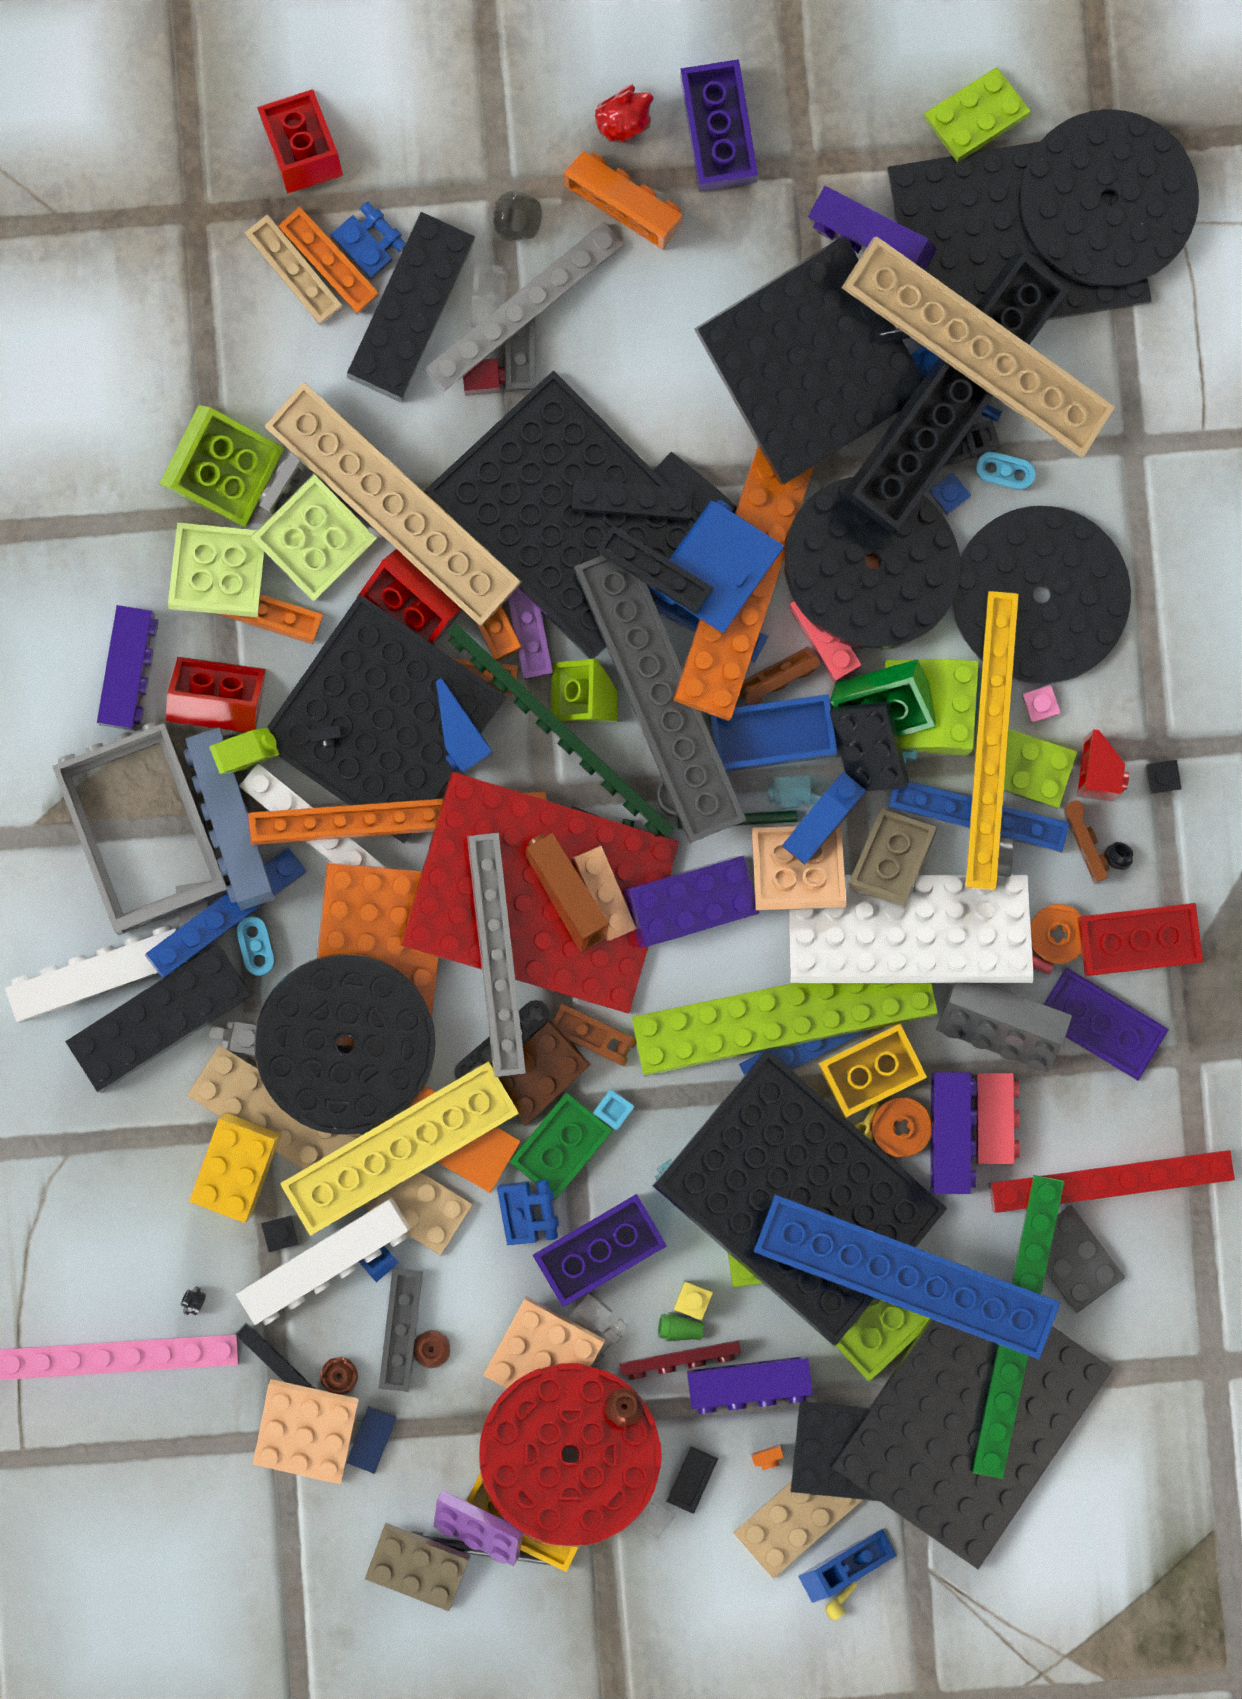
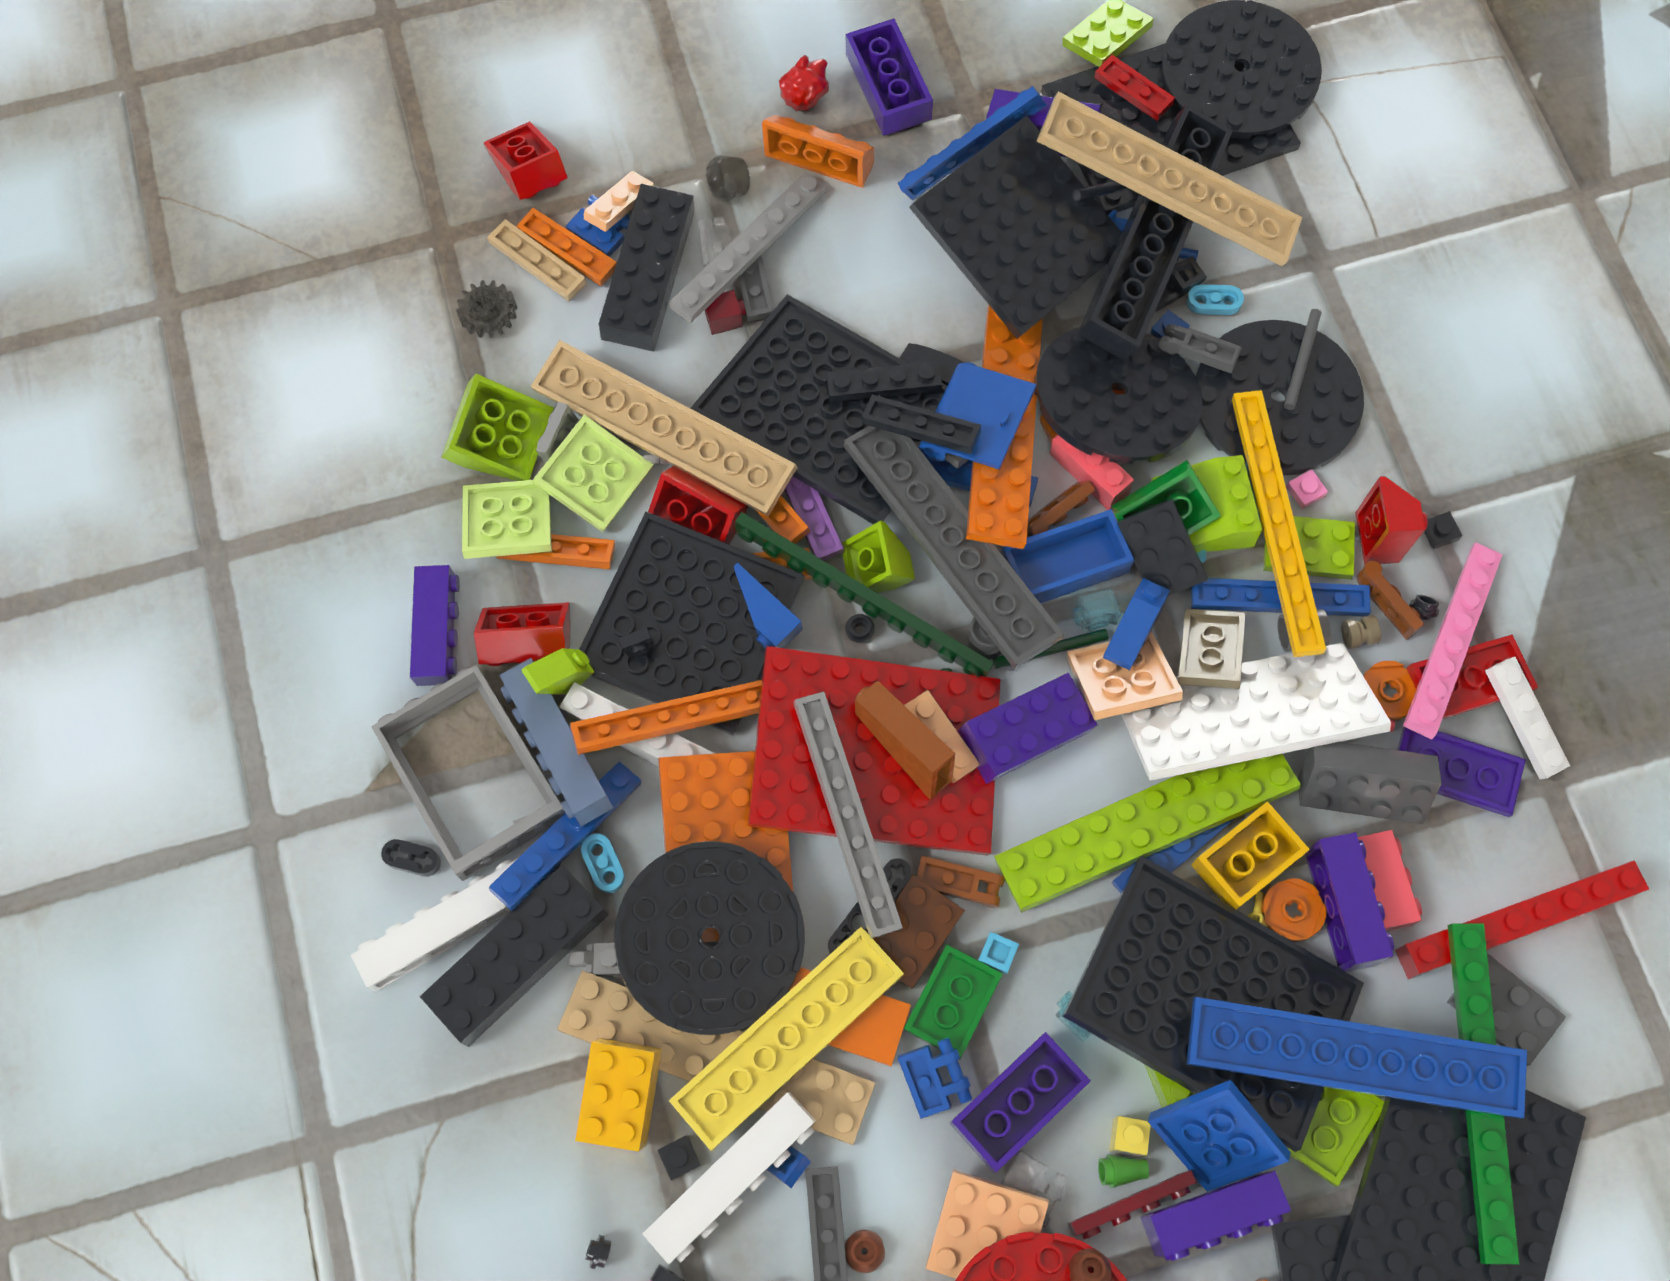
camera: 10 degrees left, 15 degrees down
(68, 908) = (412, 850): none -> black beam
(217, 319) = (474, 306): none -> clear smoke gear
(393, 219) = (615, 202): none -> light nougat plate
(545, 752) = (859, 620): none -> black plate
(767, 1318) = (1219, 1136): none -> blue plate
(774, 247) = (964, 148): none -> blue plate
(971, 531) = (1200, 347): none -> dark grey hinge
(984, 200) = (1134, 87): none -> red plate
(1047, 868) = (1360, 632): none -> dark tan wheel
(1074, 563) = (1302, 359): none -> dark grey bar
(1131, 898) = (1452, 641): none -> bright pink plate
(1180, 990) = (1527, 718): none -> white plate

